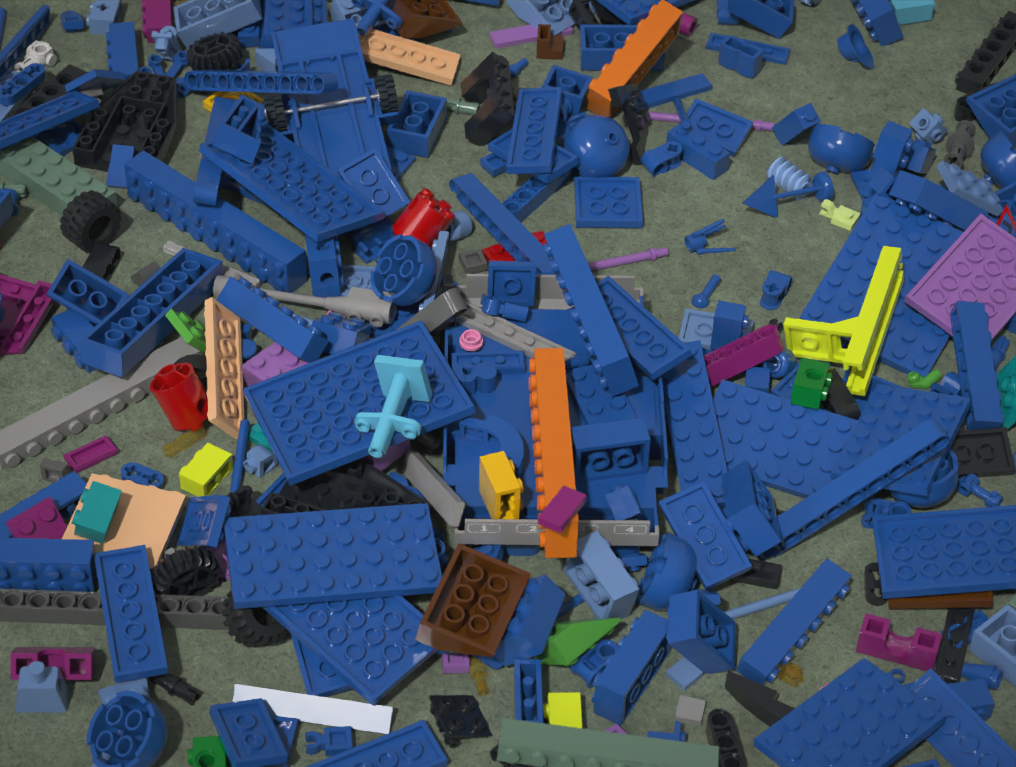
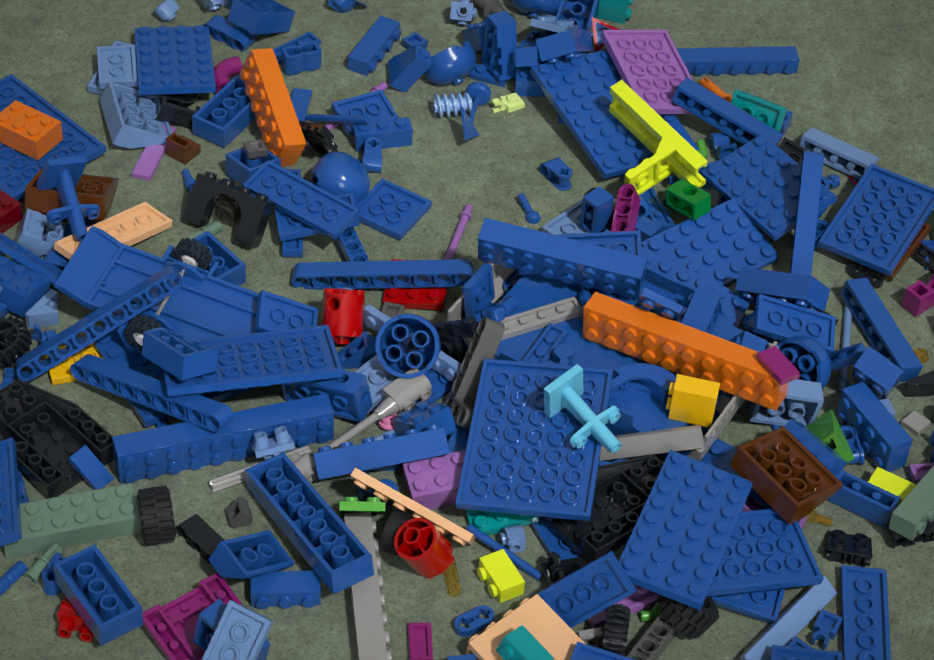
camera: 60 degrees left, 0 degrees up
(228, 251) = (273, 446): none -> medium blue hips
(471, 340) = (515, 345): bright pink plate -> none
(571, 75) = (255, 149): none -> flat silver plate
(578, 396) = (659, 304): none -> blue plate
(697, 240) = (474, 185): blue plant -> none
(821, 92) = (374, 46): none -> blue brick
(852, 118) = (414, 39): none -> blue plate

